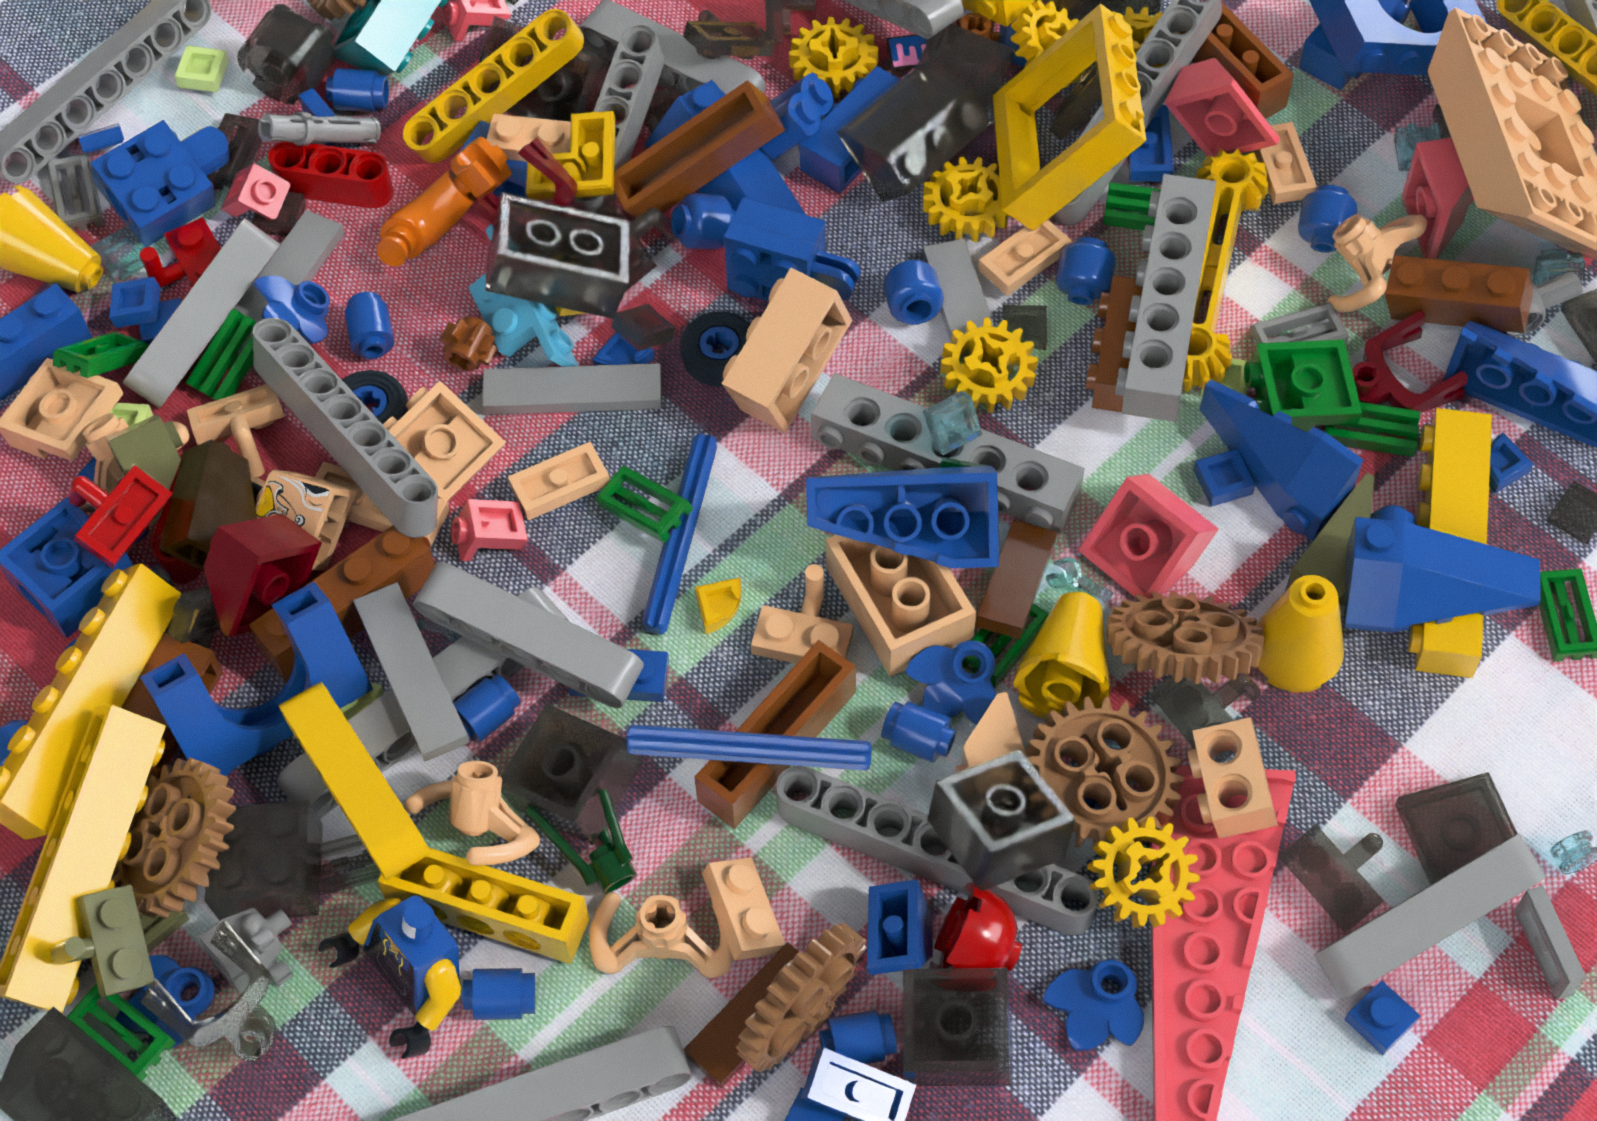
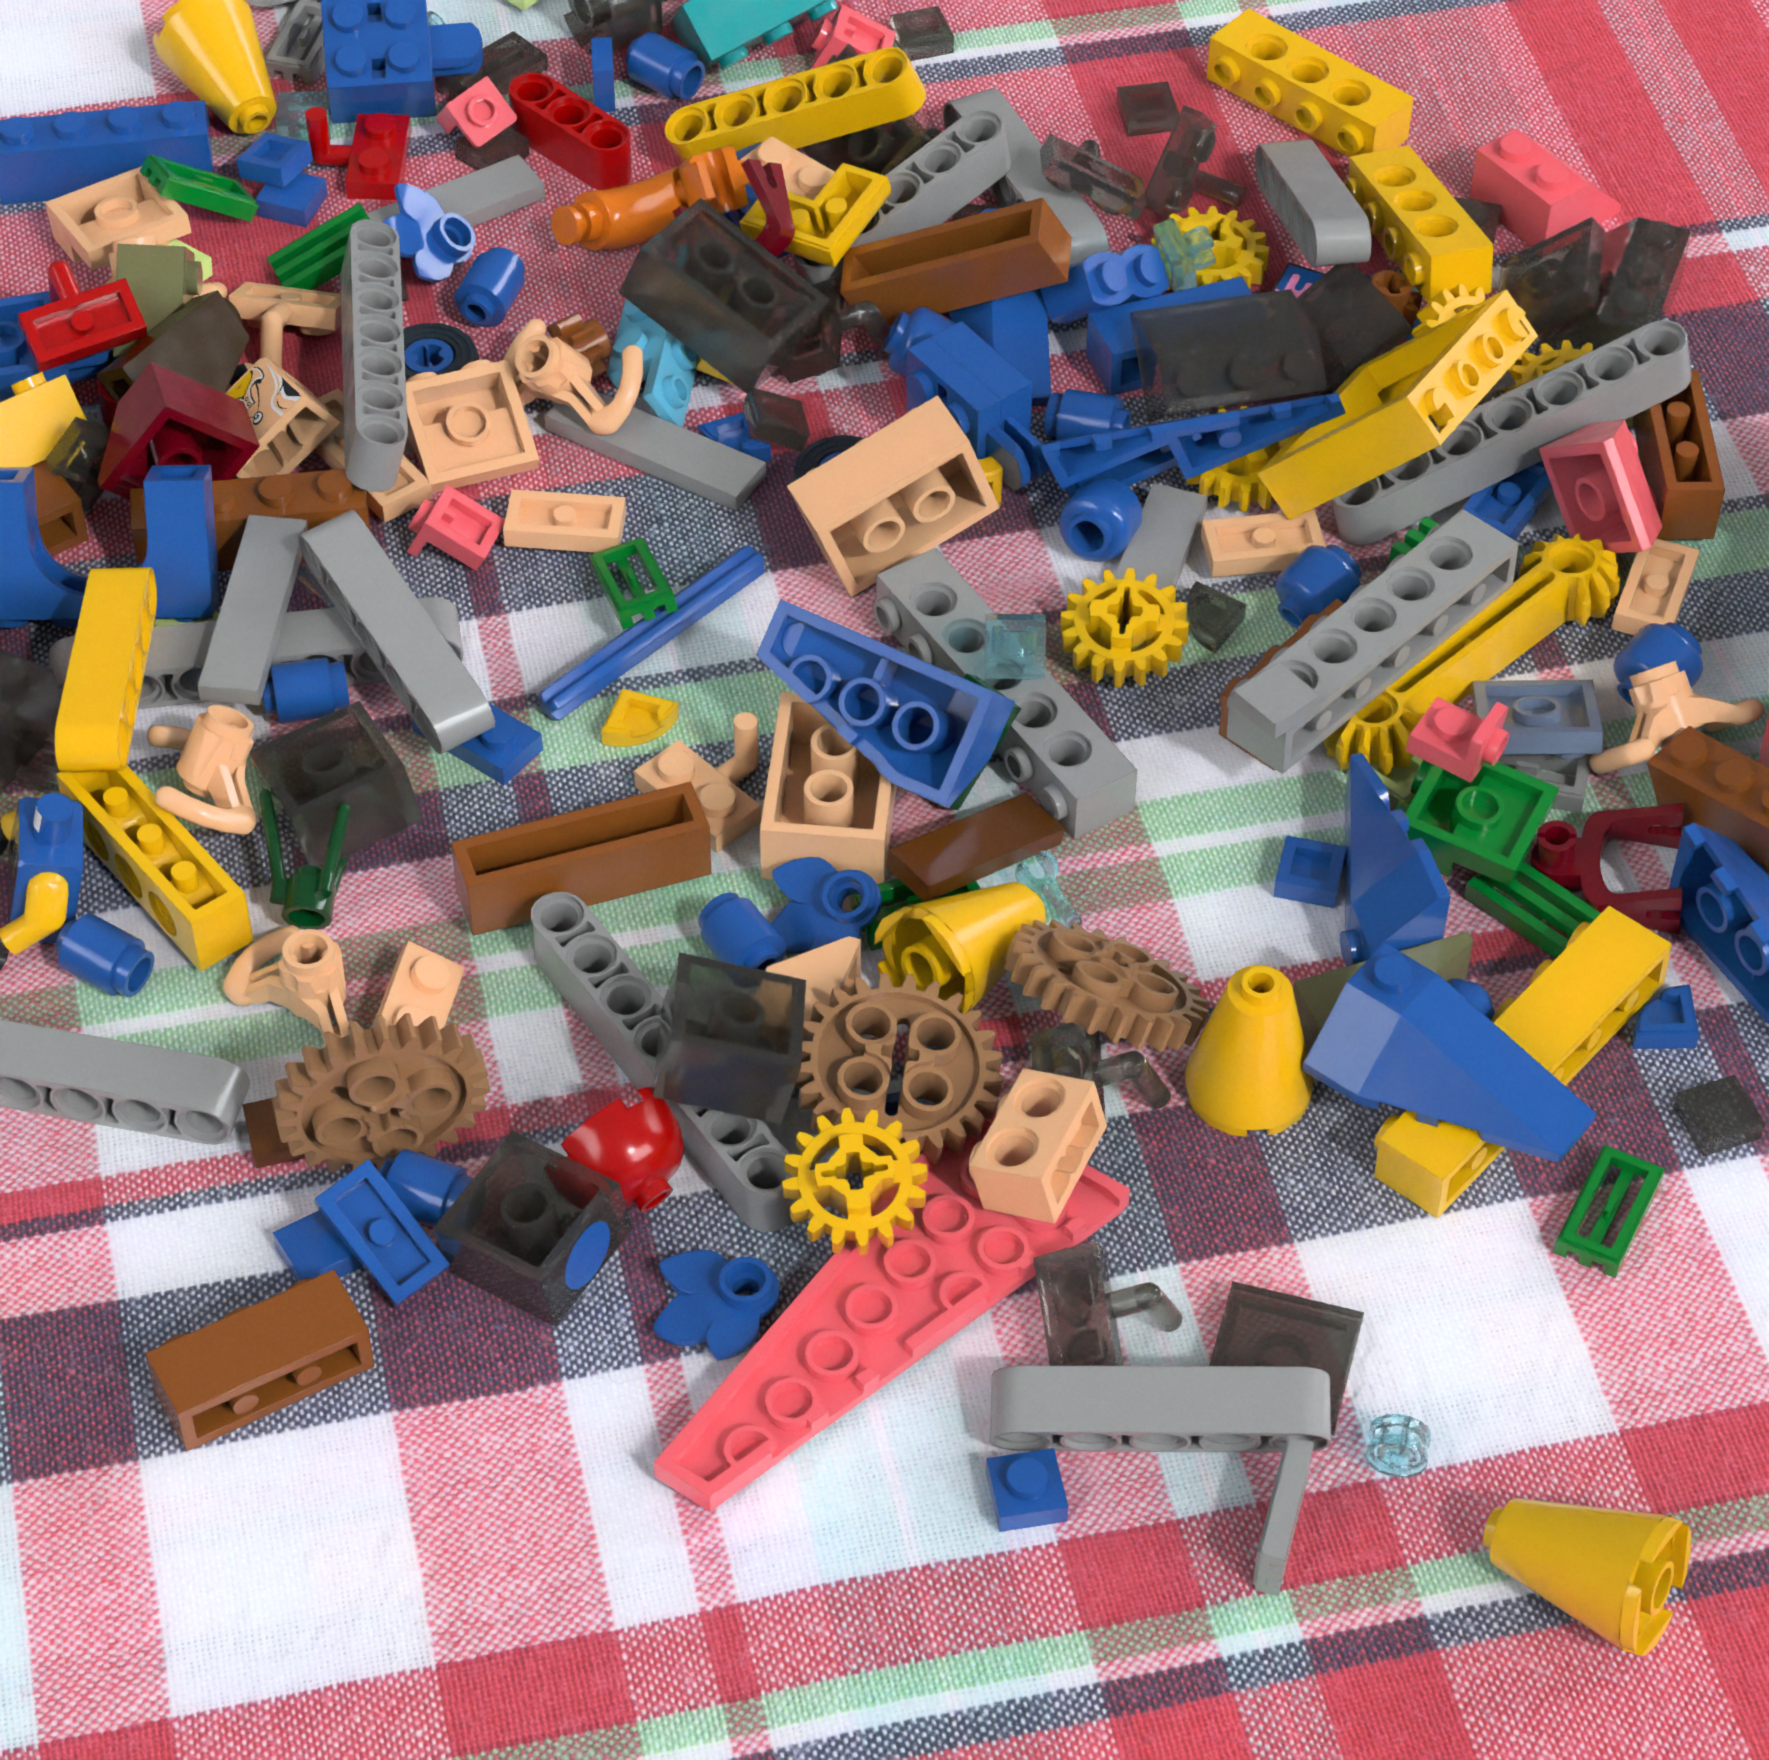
camera: 30 degrees right, 10 degrees down
(201, 313) = (284, 211): light grey beam -> none
(304, 129) = (566, 67): light grey pin -> none
(484, 370) = (559, 373): none -> light nougat piece
(749, 747) = (526, 839): blue axle -> none
(833, 69) = (1183, 253): none -> clear light blue tile
(849, 221) = (1084, 413): none -> blue brick
(898, 927) = (546, 1096): blue slope -> none
(943, 208) = (1190, 443): none -> blue wedge
(1147, 537) = (1163, 878): coral slope -> none
(1162, 377) = (1276, 700): none -> light grey tile
(1271, 339) = (1459, 739): none -> coral bracket
(1286, 294) = (1545, 715): none -> sand blue plate

